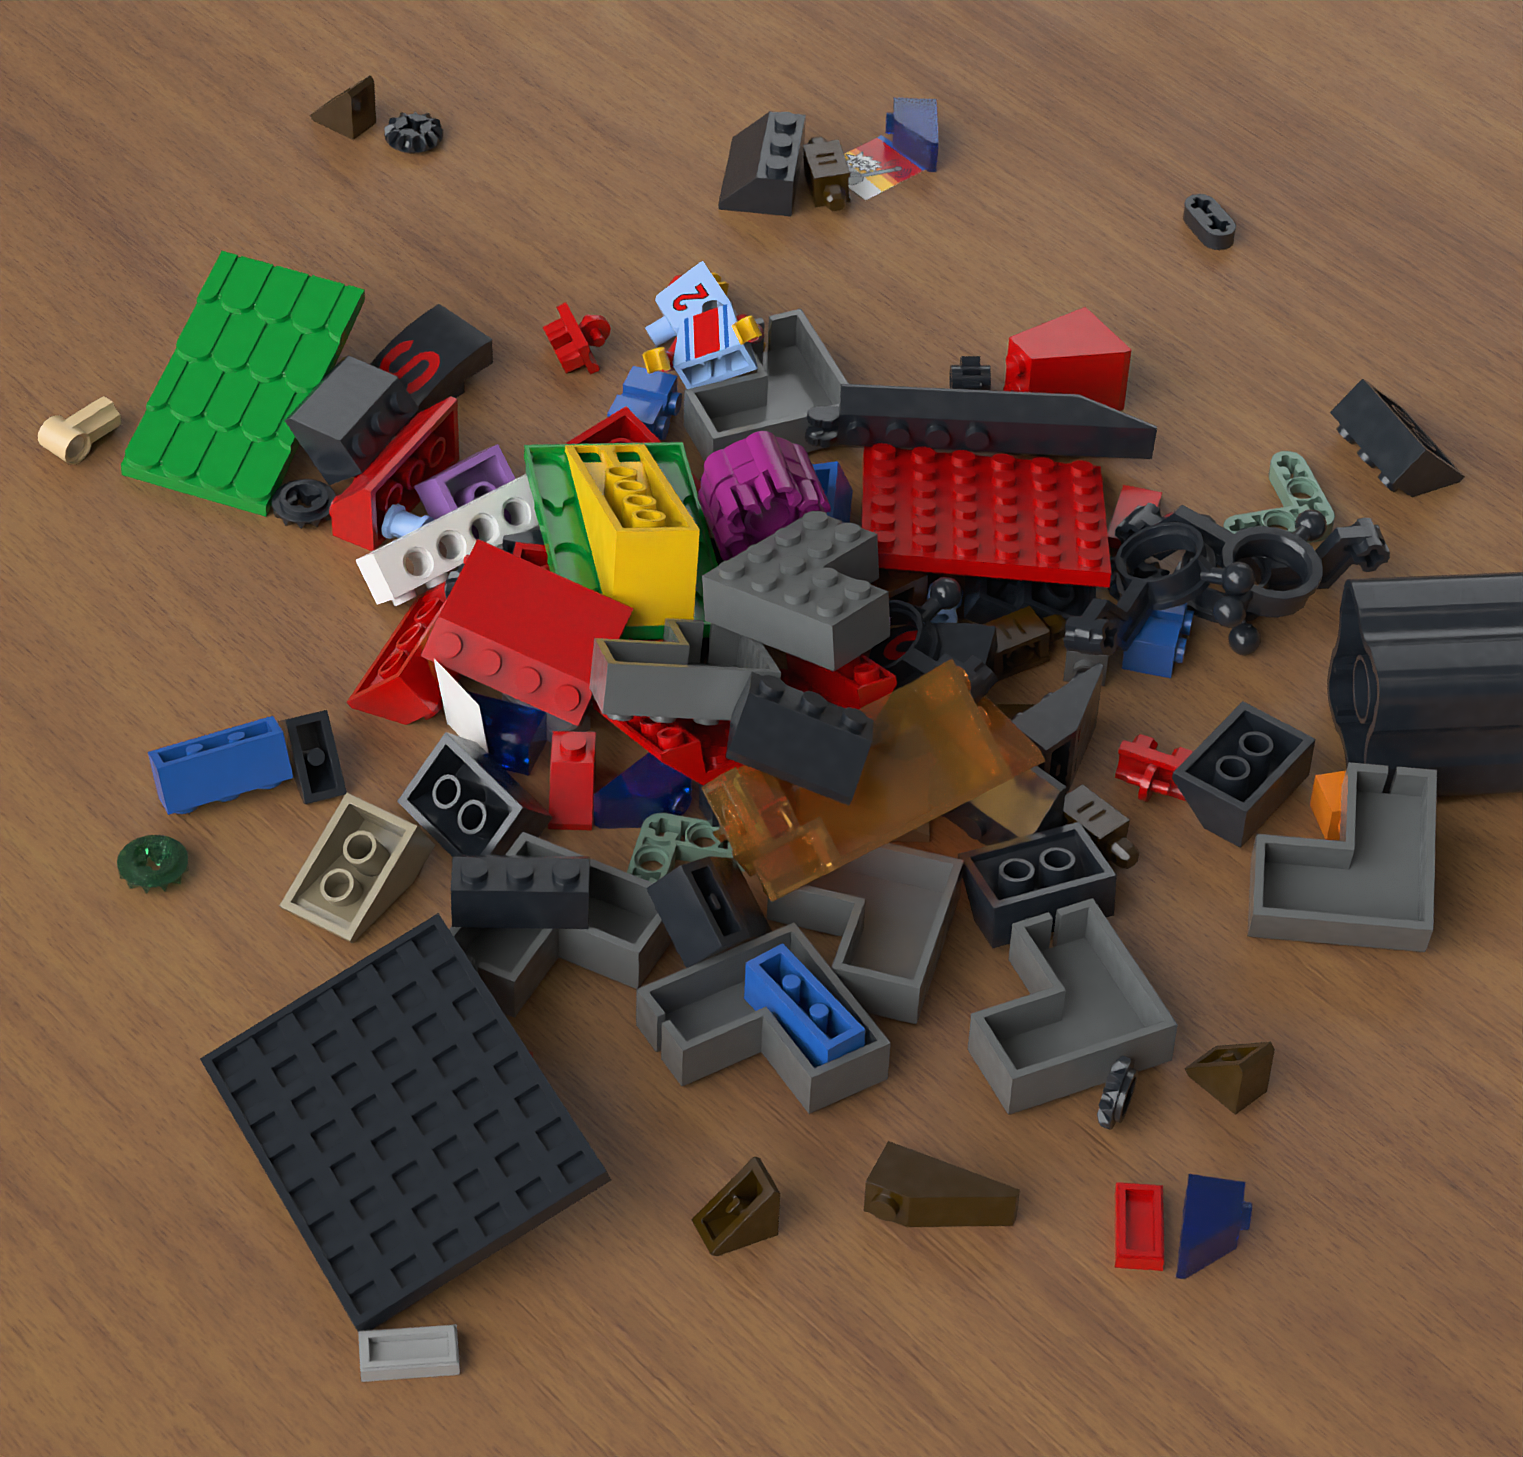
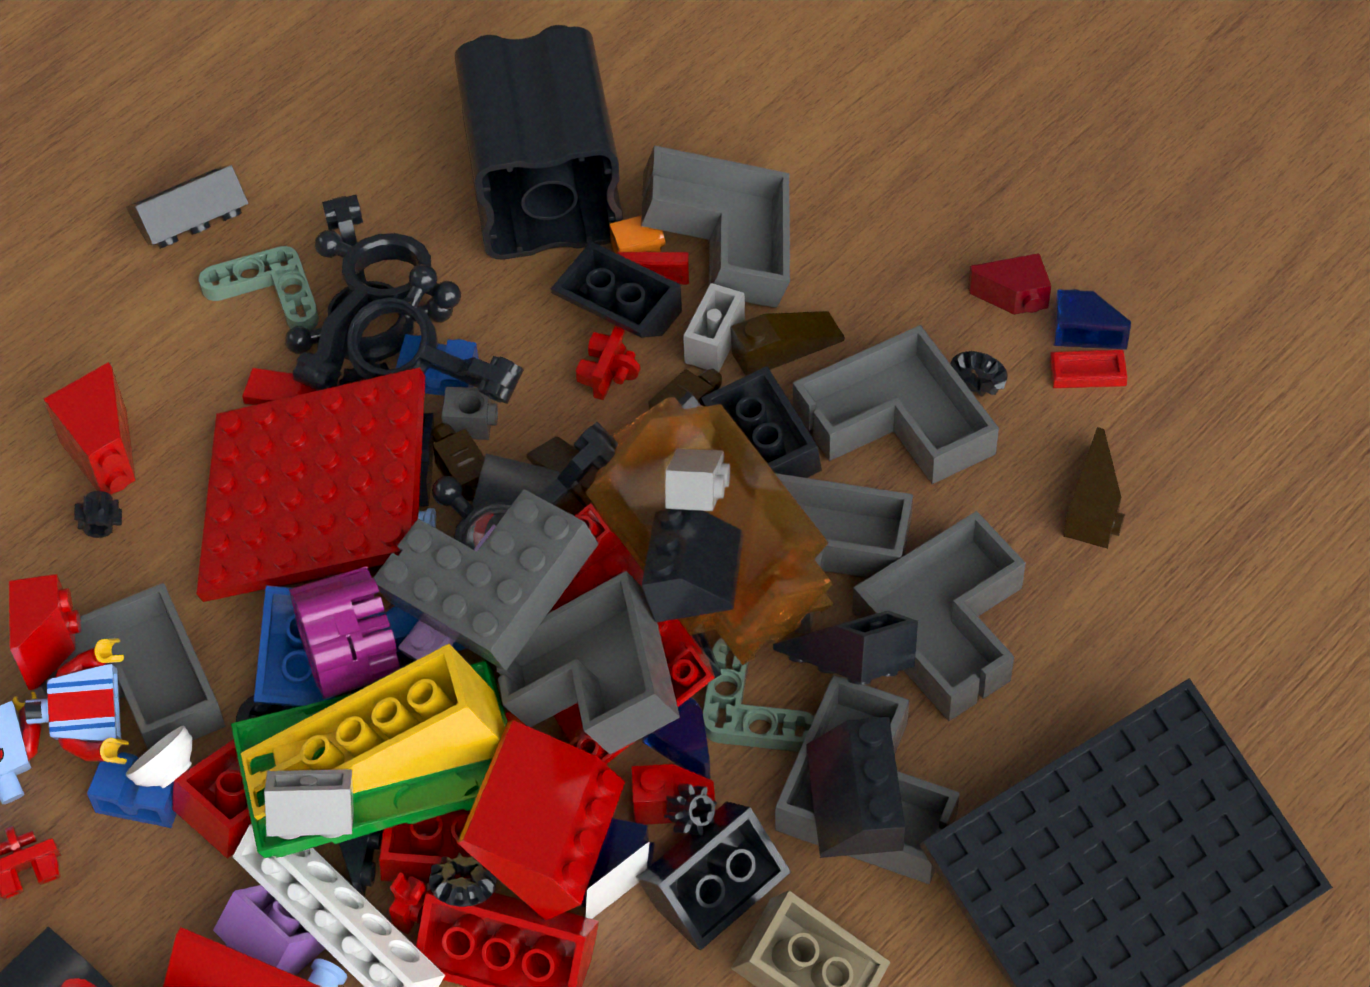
camera: 90 degrees left, 10 degrees up
(409, 1353) = (1336, 850): light grey tile -> none
(532, 767) = (690, 809): none -> black gear
(556, 459) = (309, 803): none -> brick
(645, 397) = (163, 760): none -> white piece
(741, 1211) = (1145, 619): dark brown slope -> none
(790, 297) = (41, 626): none -> red slope
(801, 1006) = (956, 568): blue brick -> none
(905, 743) = (696, 479): none -> light grey brick
(979, 423) = (187, 499): black hinge -> none
(1064, 724) = (576, 404): black slope -> none
(1189, 926) = (782, 338): none -> dark brown slope
(1196, 855) = (709, 332): none -> light grey brick
(1234, 1073) = (934, 303): dark brown slope -> none
(1272, 1159) = (1012, 284): none -> dark red slope
(1300, 806) = (668, 264): none -> red tile

